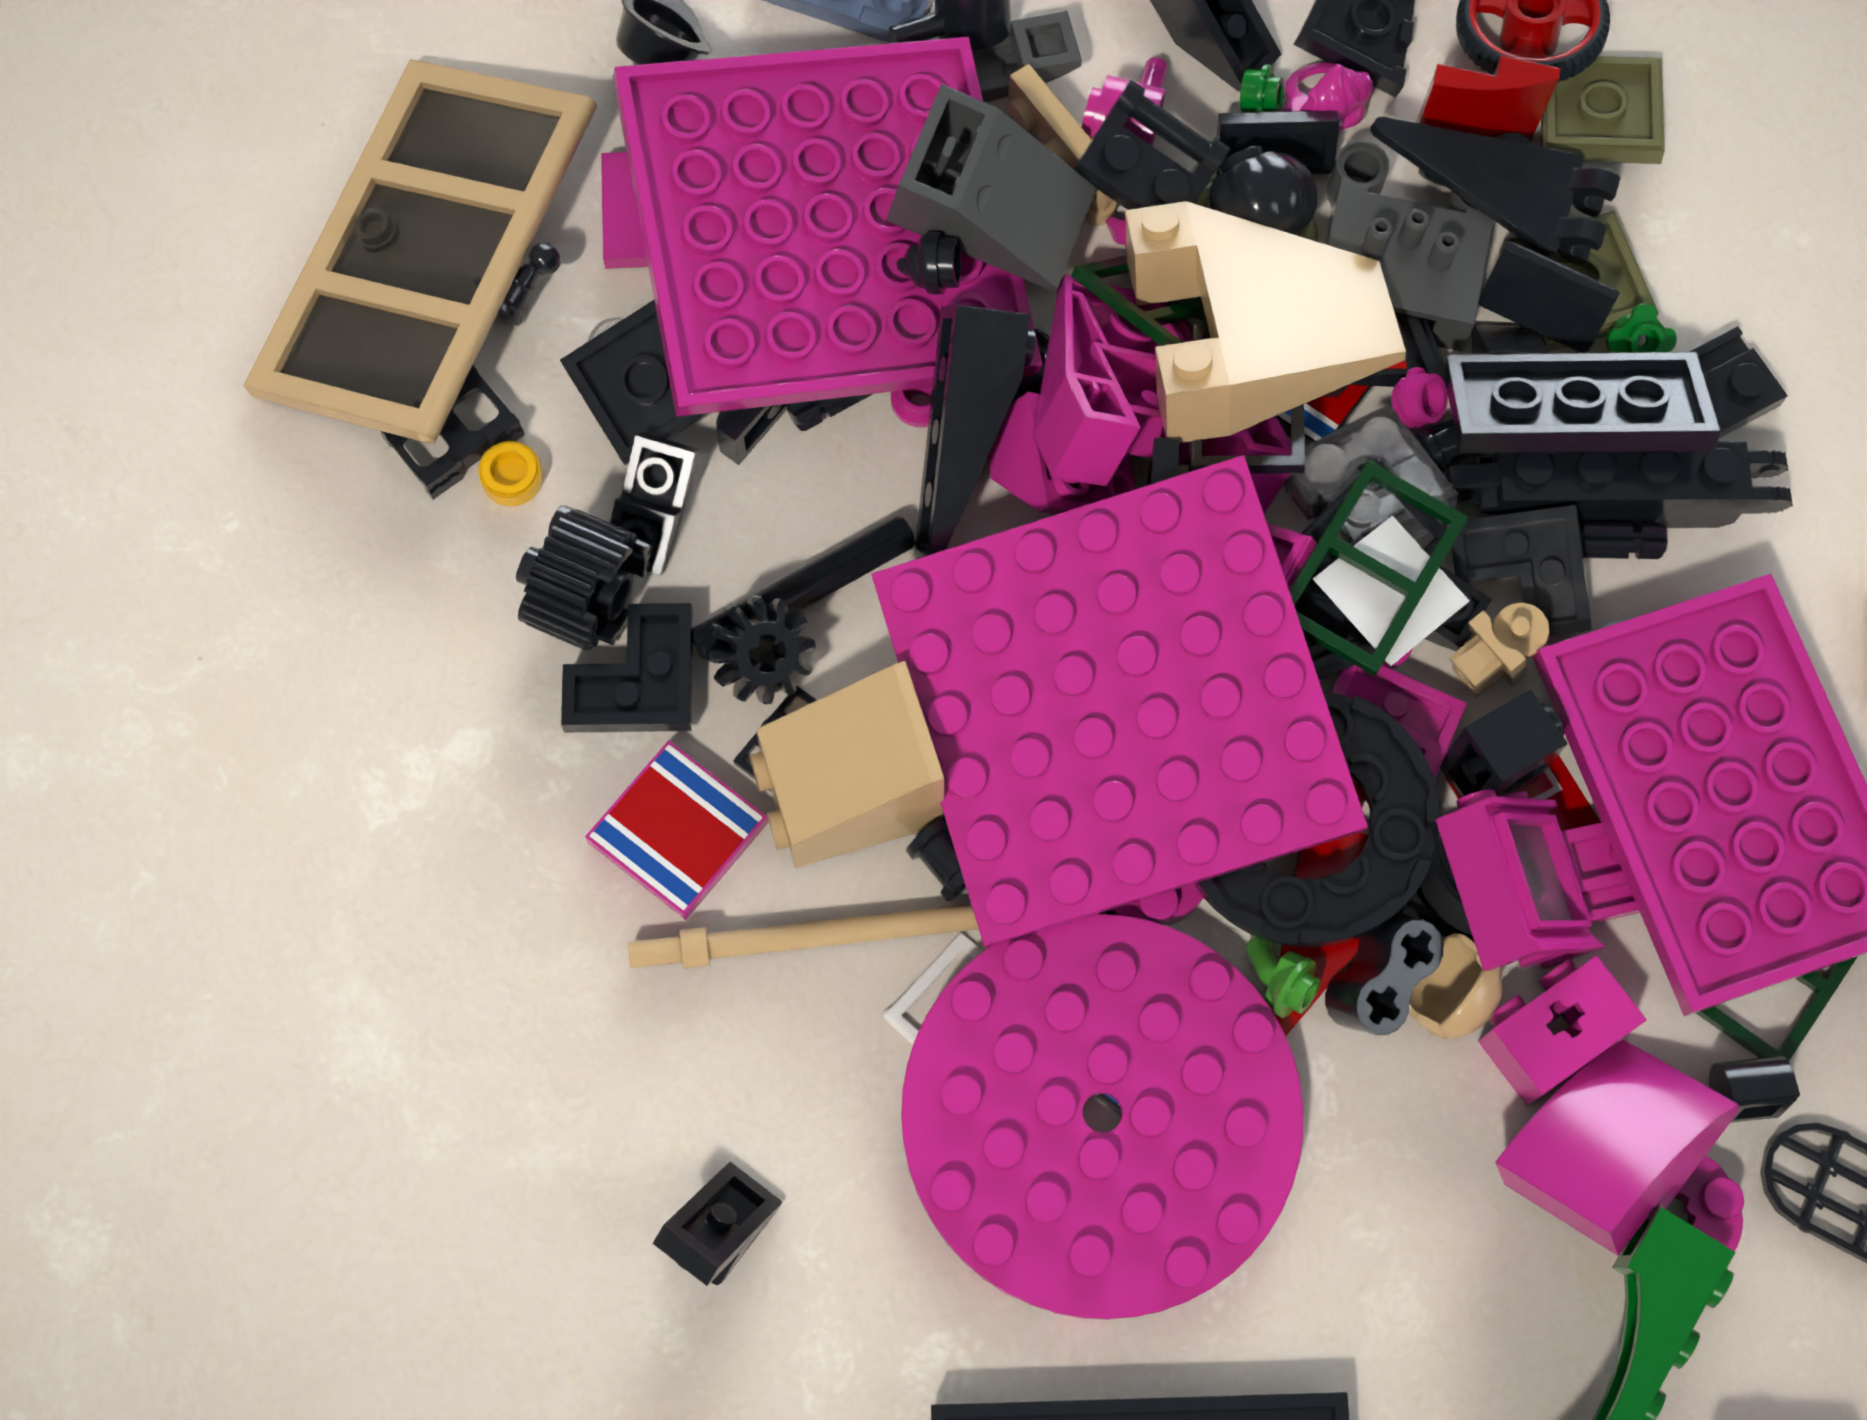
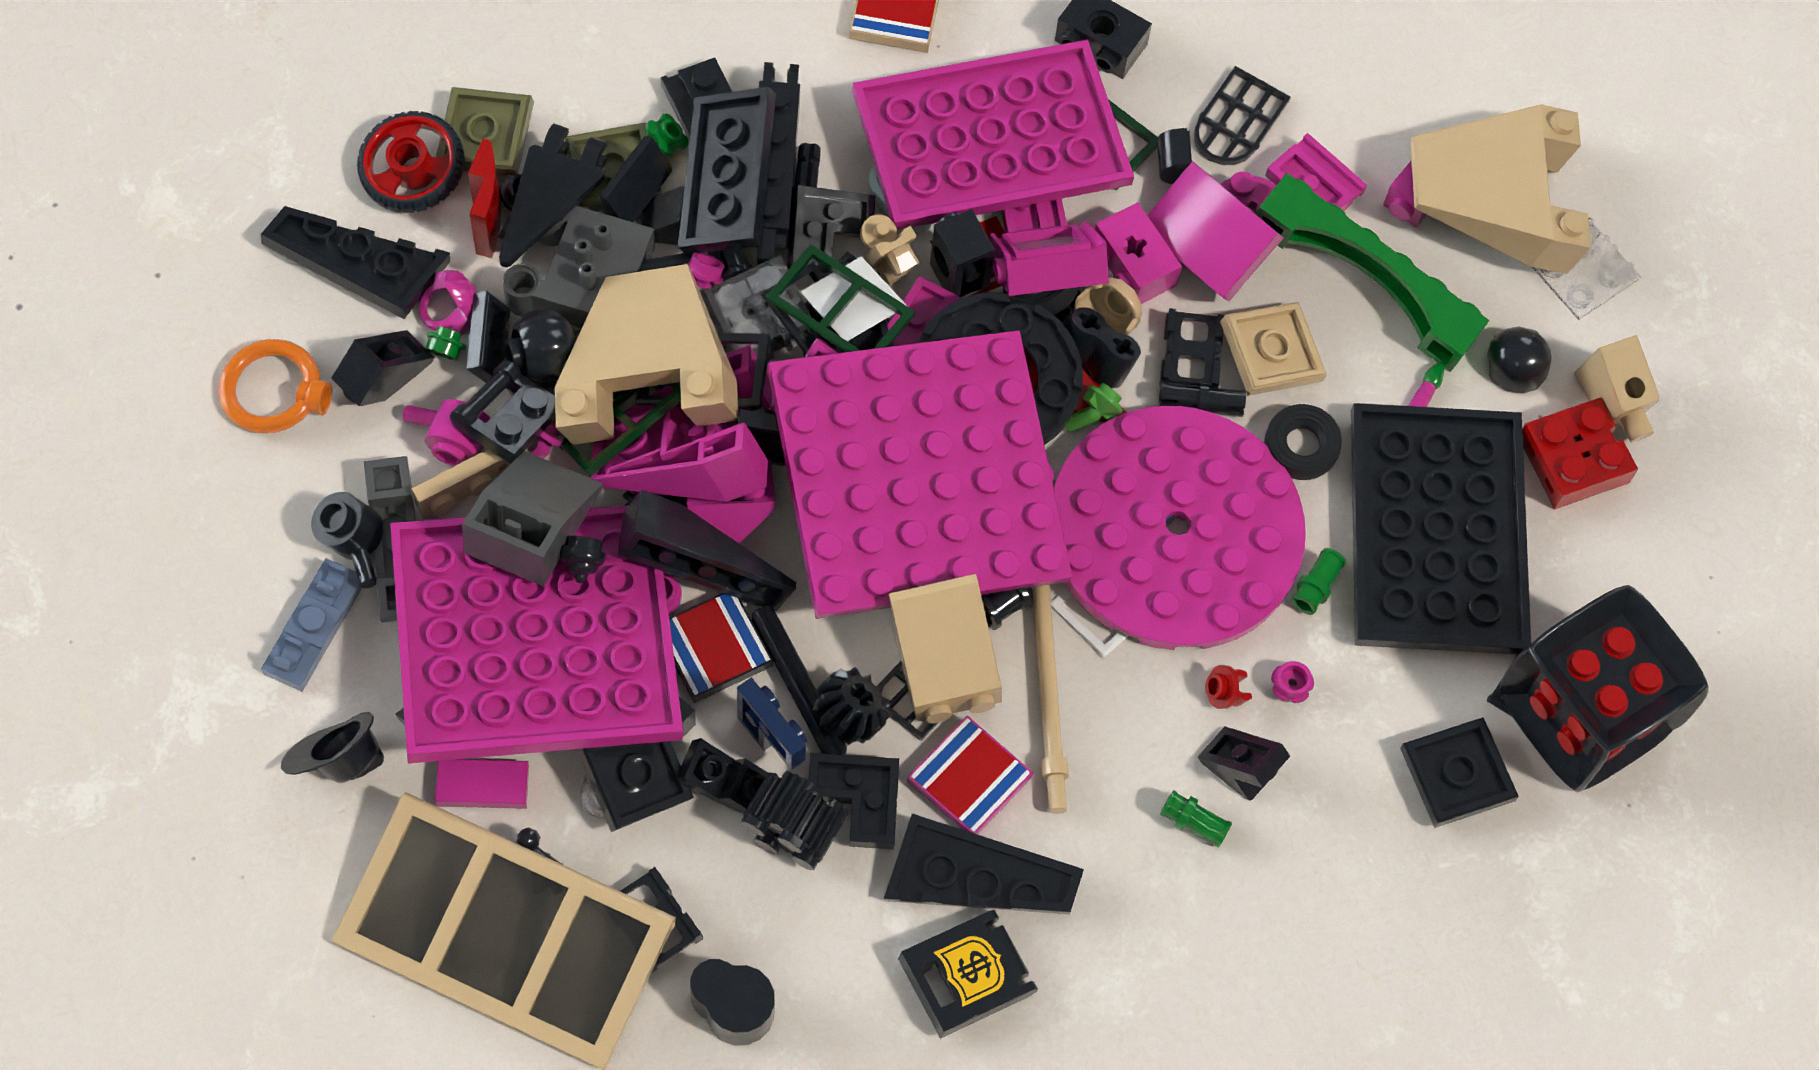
camera: 90 degrees left, 5 degrees down
(329, 531) = (733, 1000): none -> black piece
(384, 849) = (977, 969): none -> black container
(510, 473) = (690, 879): yellow tile -> none
(534, 827) = (970, 870): none -> black wing
(625, 1157) = (1195, 818): none -> green pin
(719, 531) = (760, 716): none -> dark blue plate
(838, 1190) = (1223, 687): none -> red plate
(849, 1287) = (1292, 671): none -> dark pink plate
(850, 472) = (716, 646): none -> tile
(1030, 1341) = (1315, 587): none -> green pin
(1315, 1309) = (1308, 418): none -> black tyre
(1326, 1147) = (1203, 398): none -> black pin
(1411, 1153) = (1177, 347): none -> black piece
(1430, 1259) = (1273, 348): none -> tan plate
(1759, 1325) = (1320, 170): none -> dark pink plate

